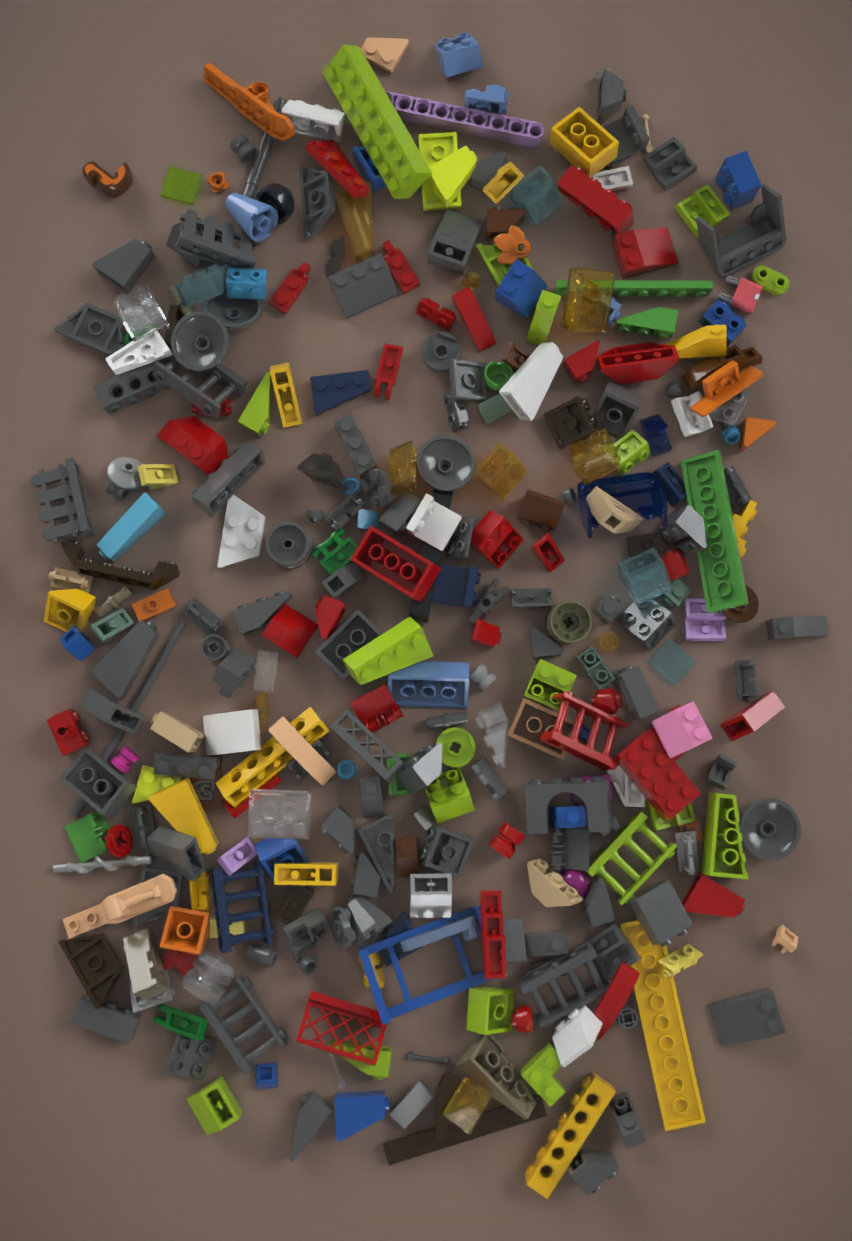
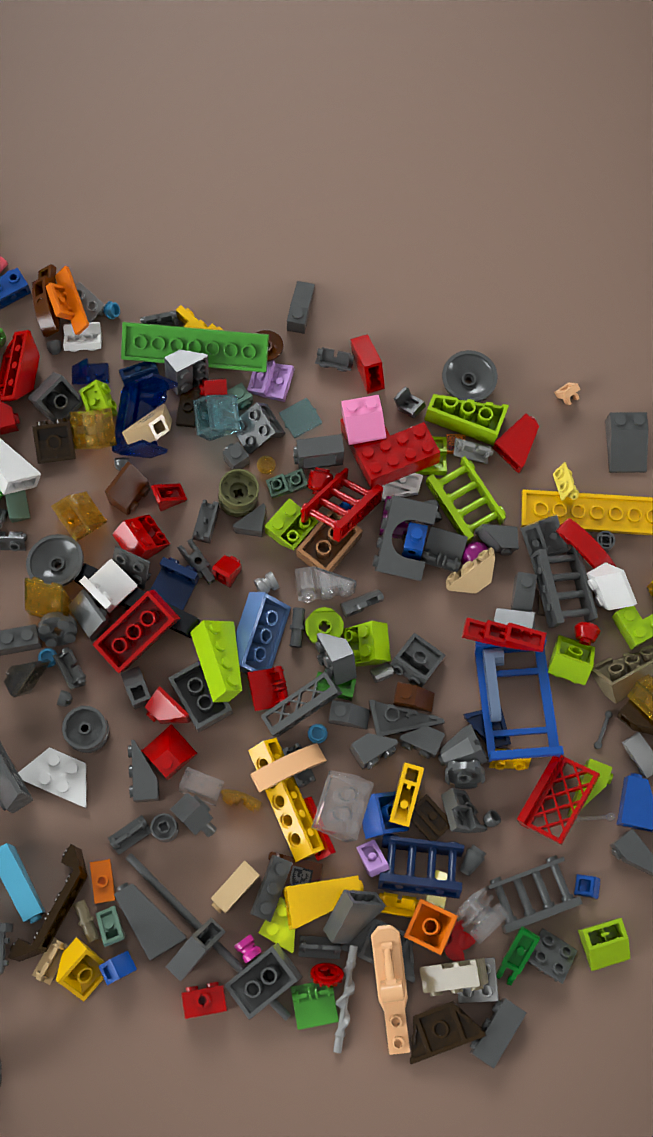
camera: 80 degrees left, 10 degrees down
(232, 732) = (251, 833): white slope -> none
(339, 556) = (112, 685): green plate -> none
(366, 519) = (85, 651): dark azure slope -> none
(430, 895) = (455, 684): light grey slope -> none
(506, 840) = (421, 602): red wheel -> none
(661, 913) = (520, 485): dark grey brick -> none
(704, 342) = (20, 307): yellow slope -> none
(753, 429) = (114, 291): orange slope -> none

